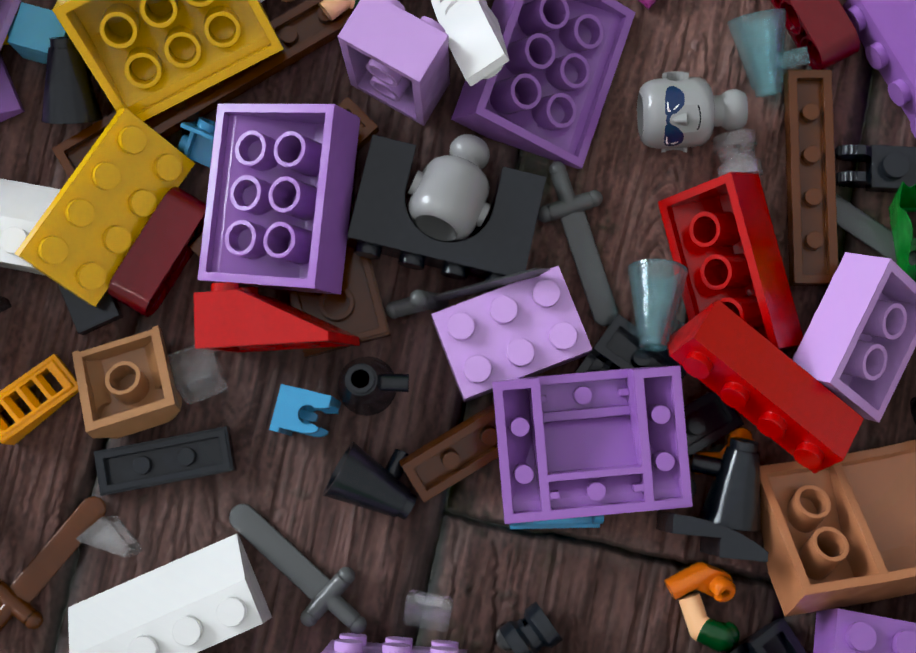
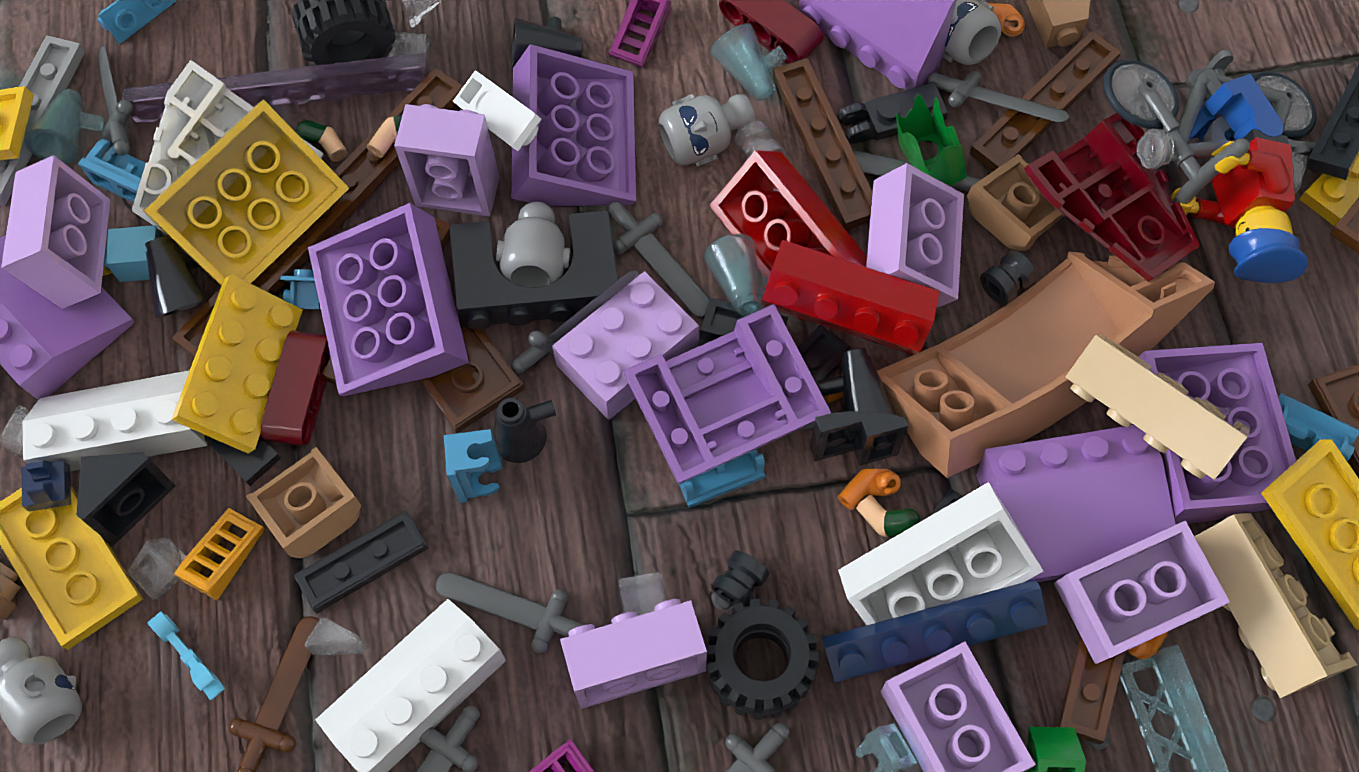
camera: 20 degrees left, 15 degrees down
(197, 374) = (366, 477): clear slope -> none
(243, 322) = (408, 405): red slope -> none
(369, 485) = (553, 510): black piece -> none
(453, 455) = (616, 458): reddish brown plate -> none

